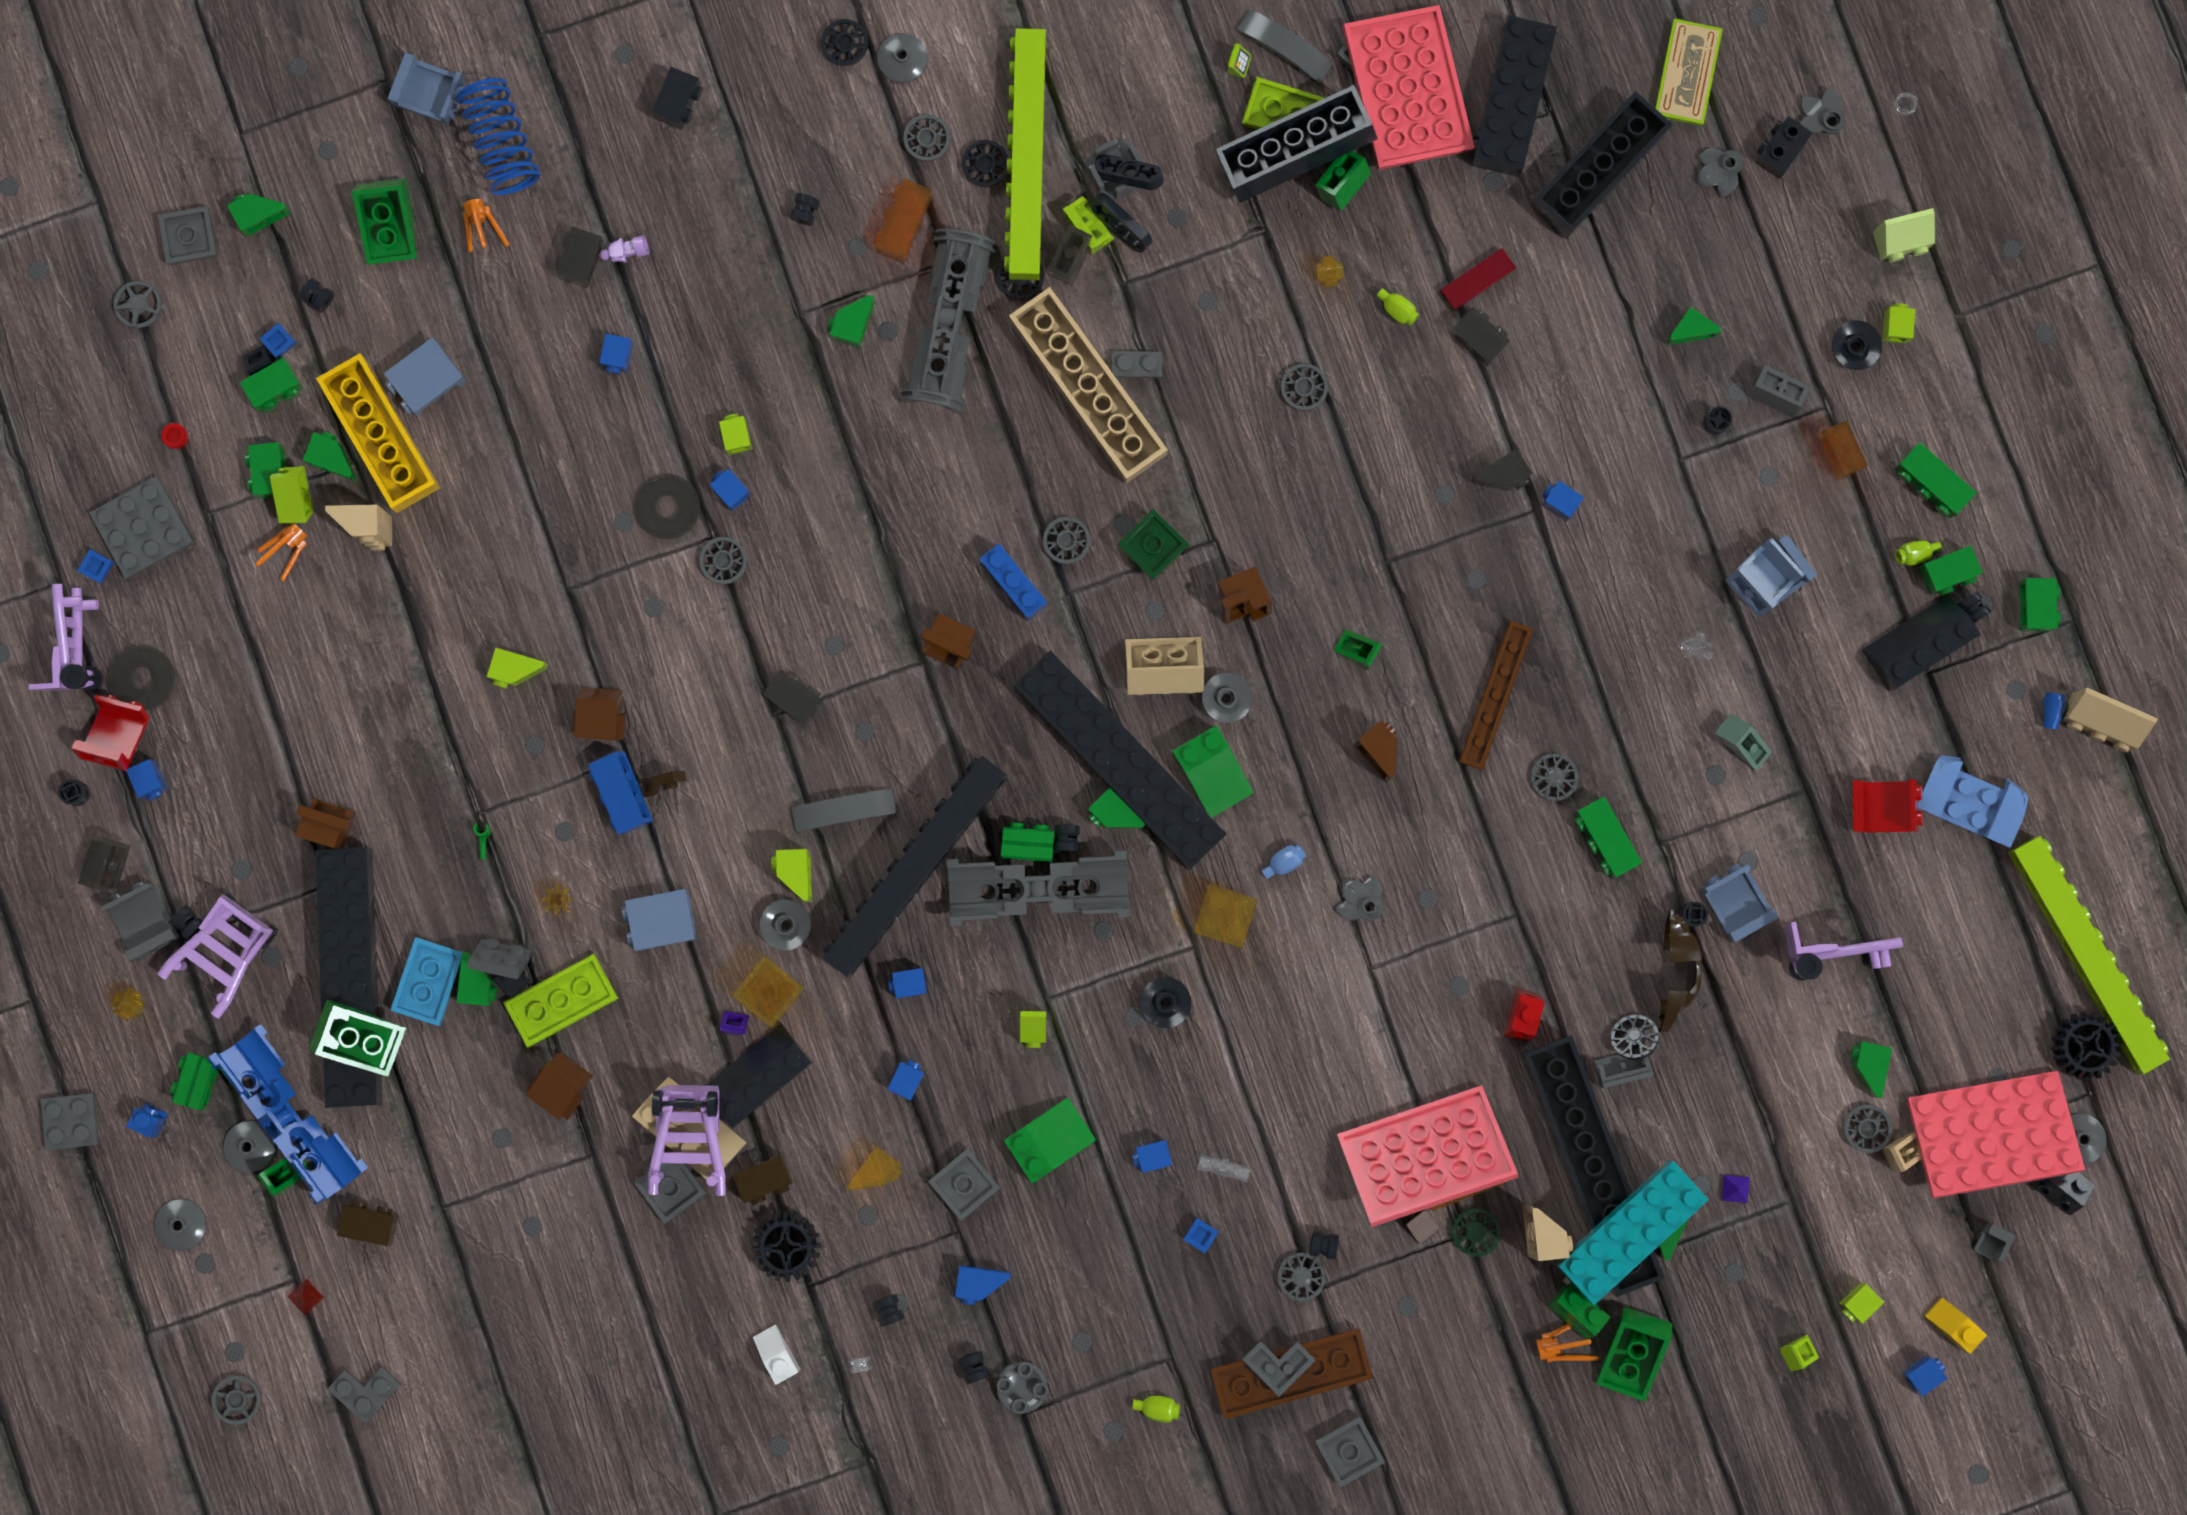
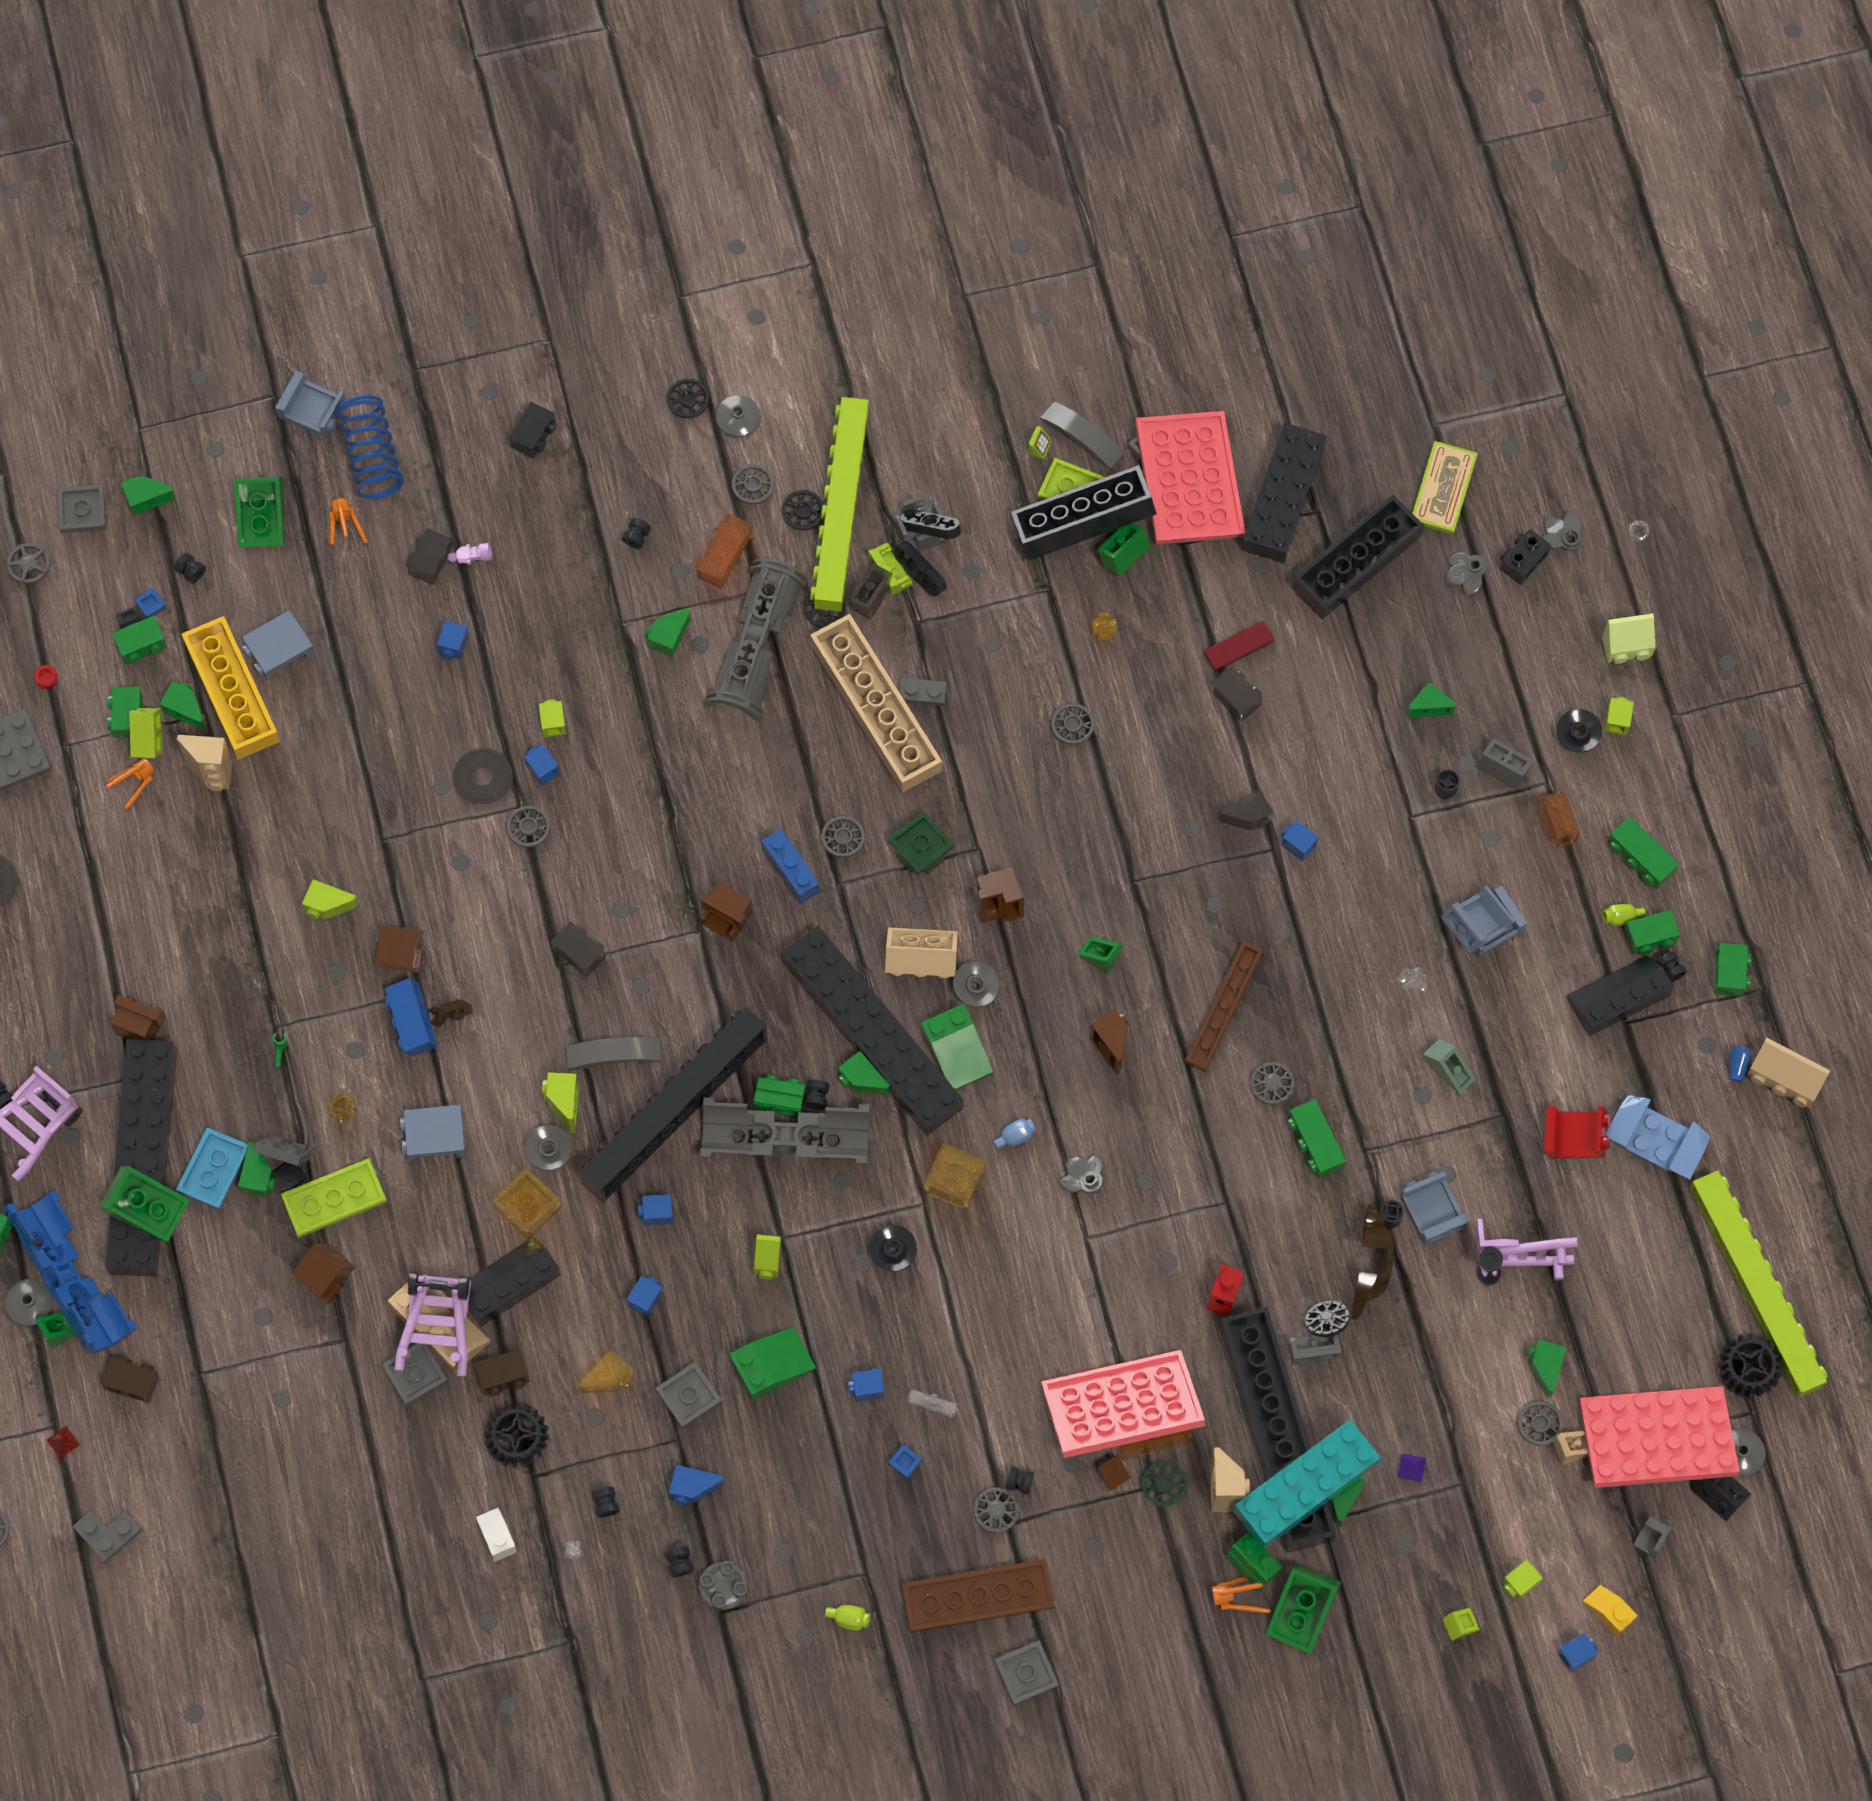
camera: 10 degrees right, 15 degrees down
(734, 1023) = (491, 1232): dark purple slope -> none
(1281, 1372) = (966, 1589): dark grey plate -> none
(1398, 307) = (1164, 663): lime plant -> none

